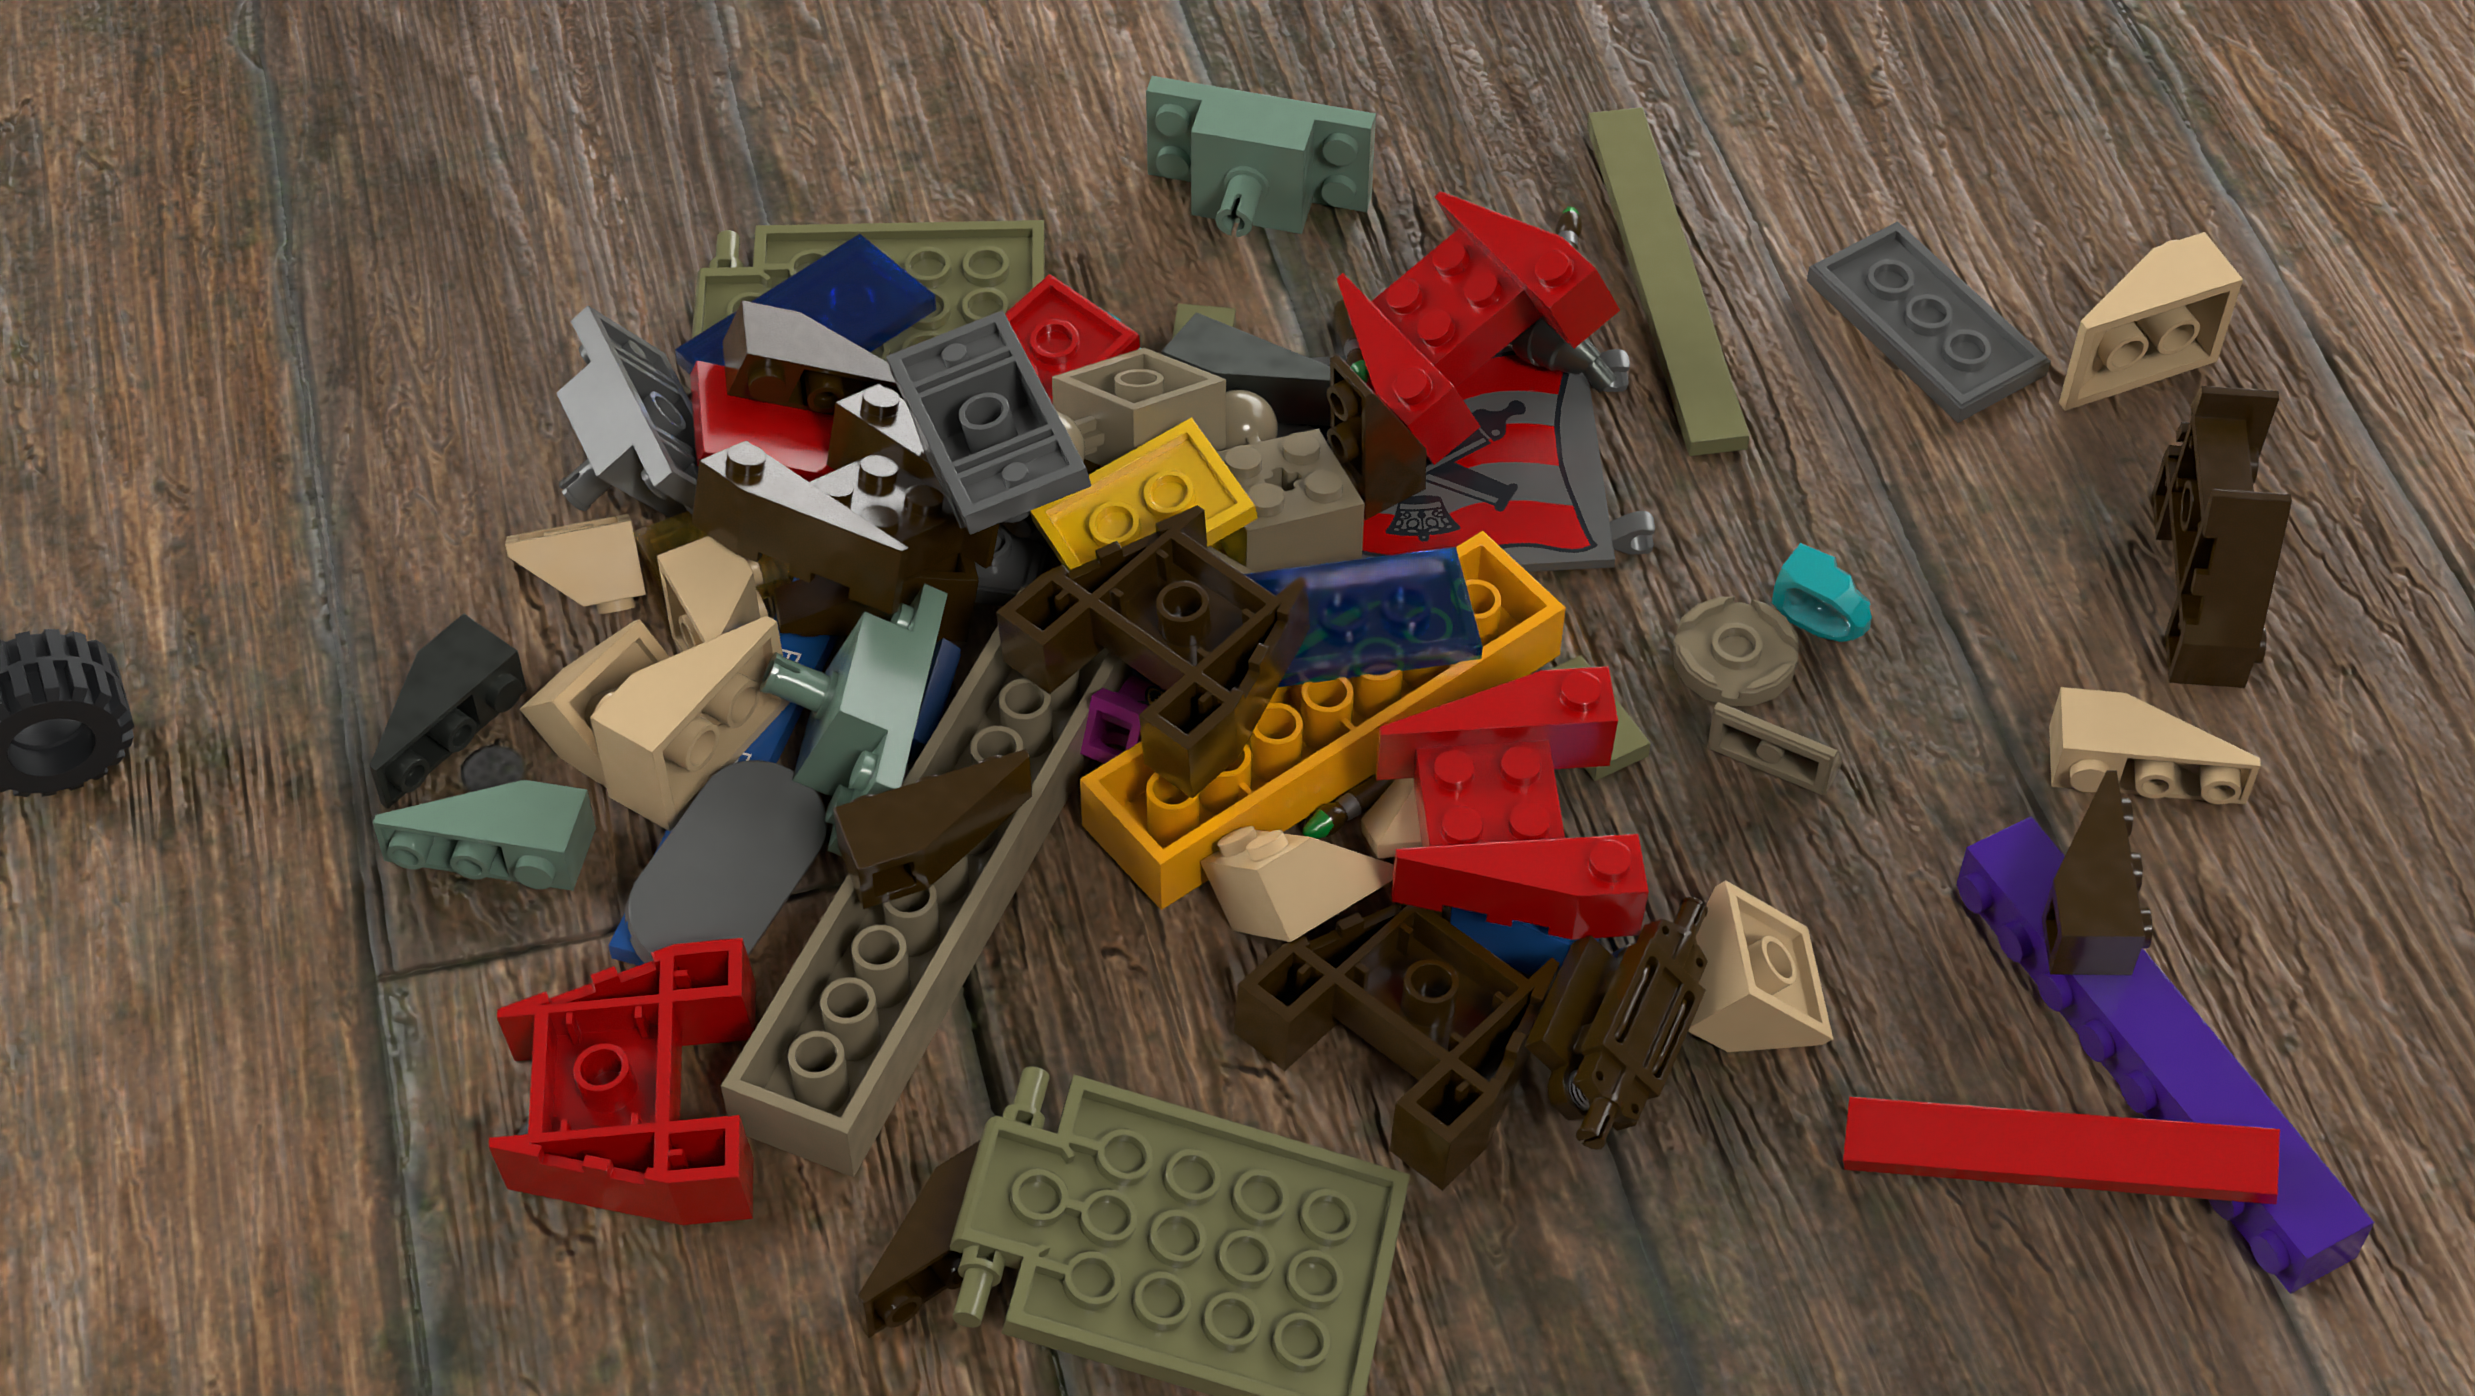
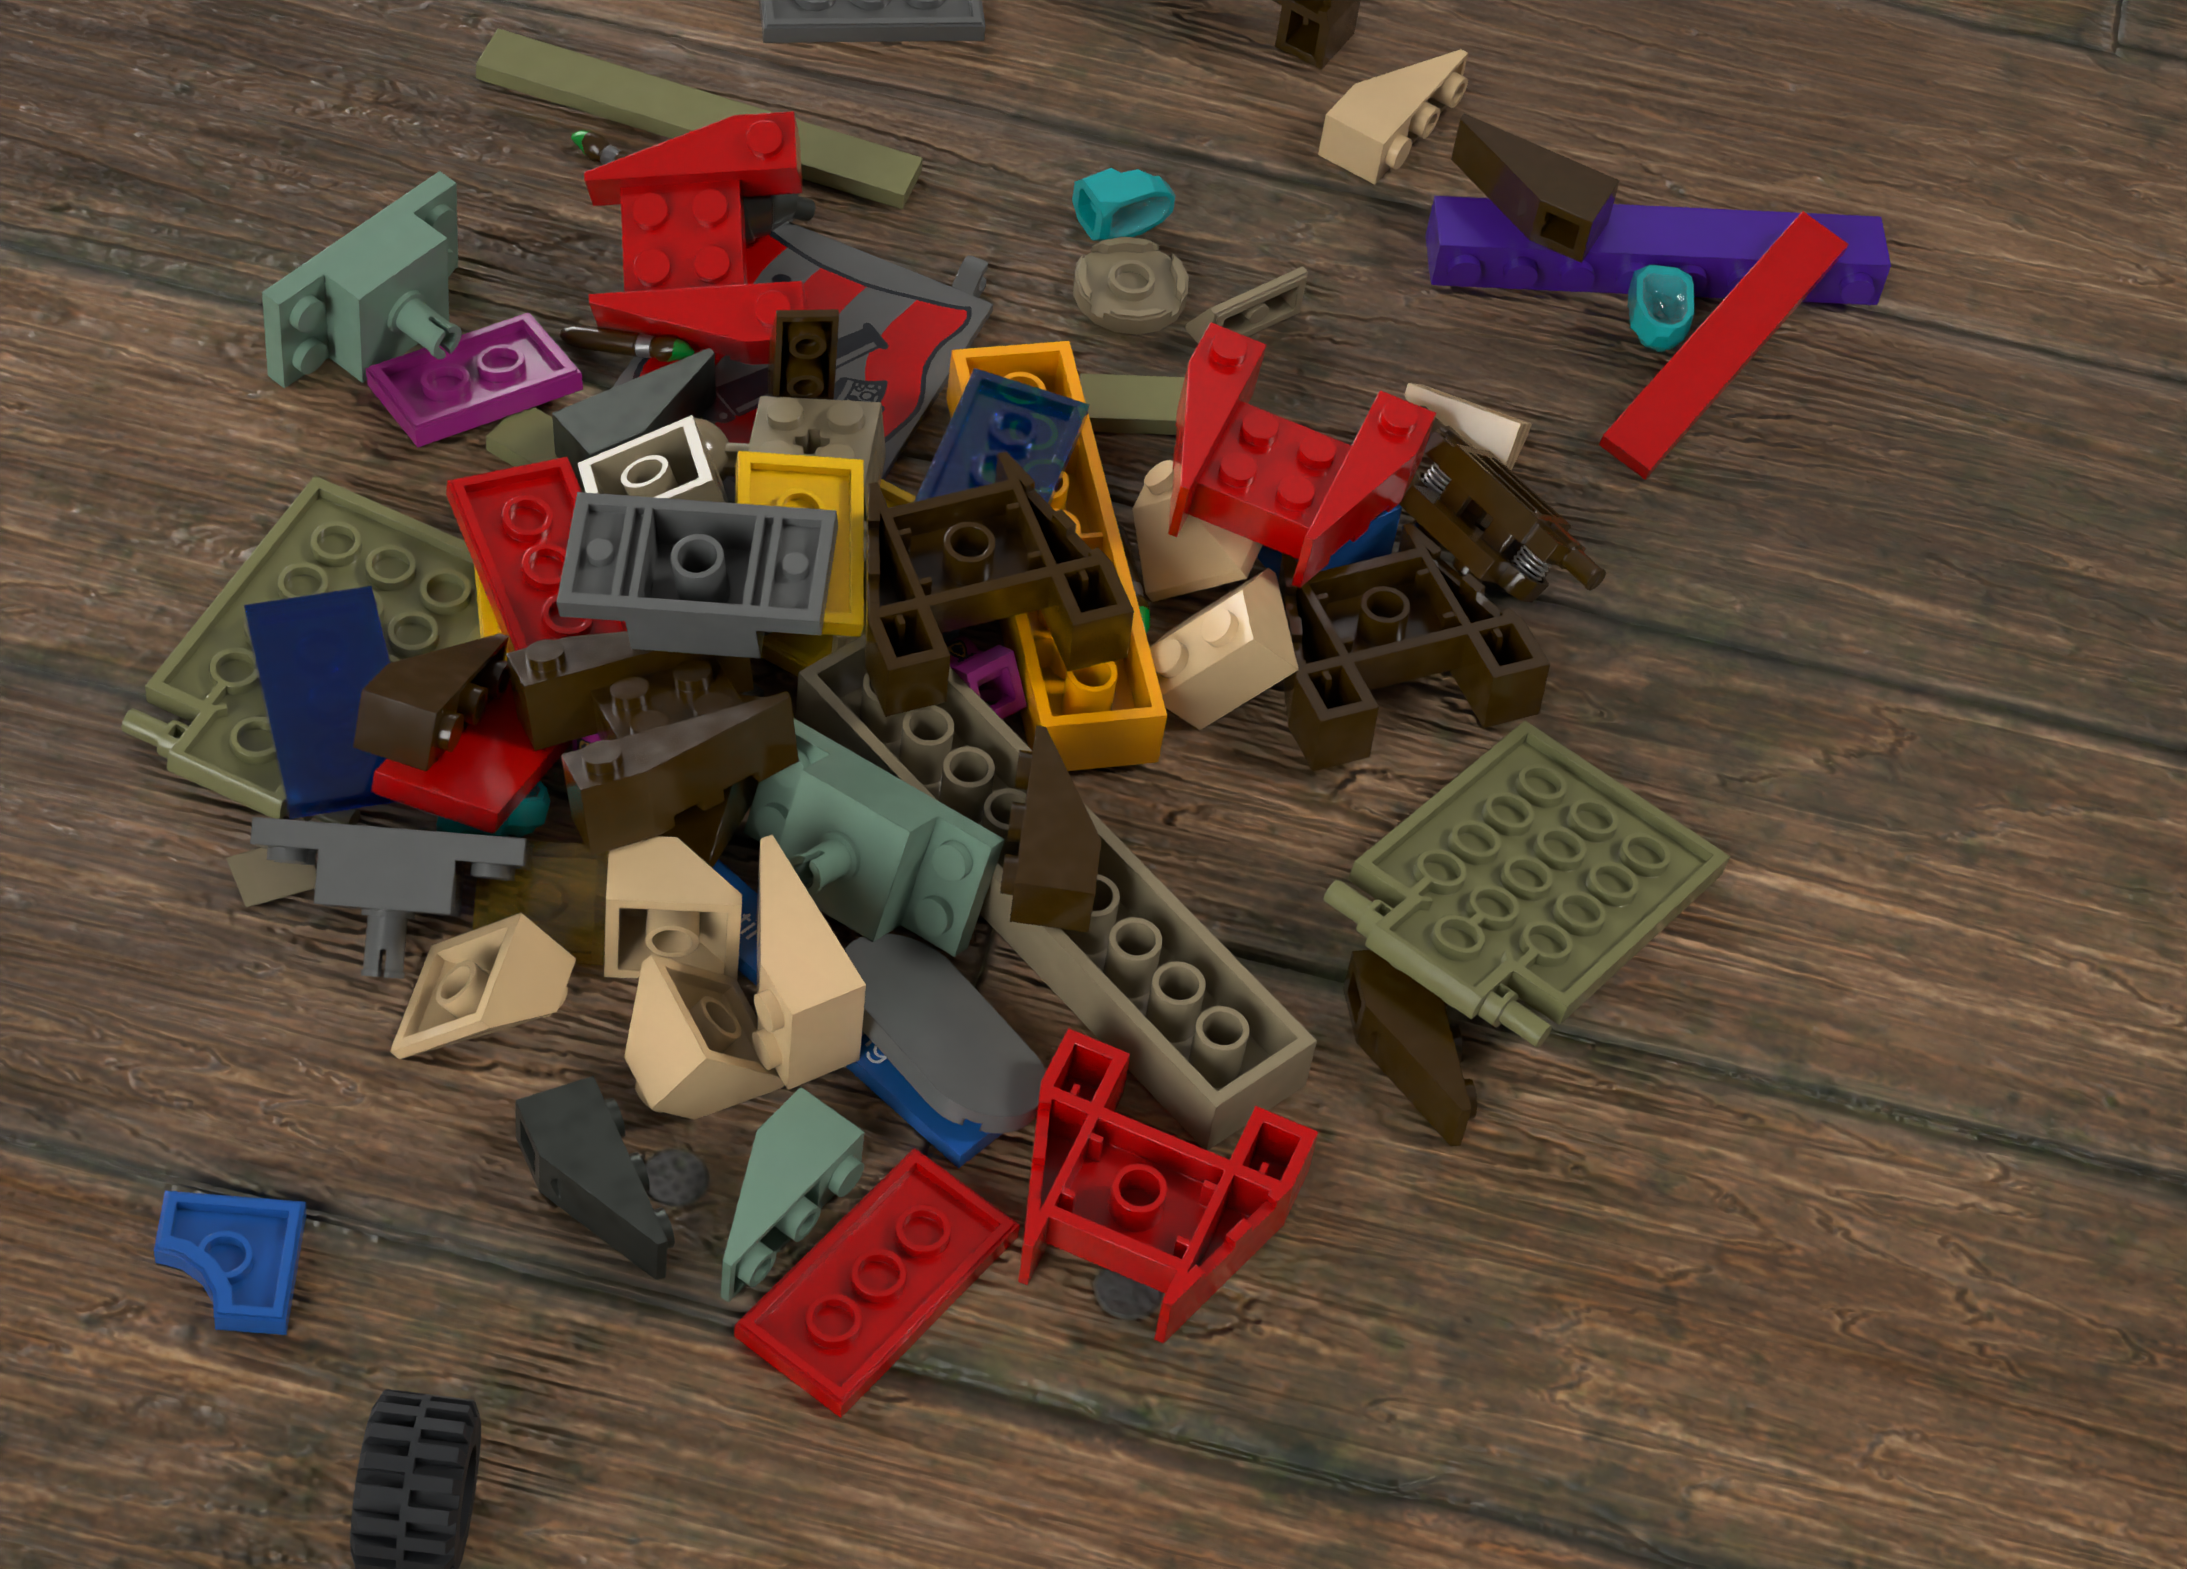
camera: 70 degrees left, 0 degrees up
(258, 538) = (239, 1252): none -> blue tile
(448, 945) = (876, 1282): none -> red tile
(1241, 276) = (481, 381): none -> magenta tile
(2069, 1075) = (1661, 306): none -> rock

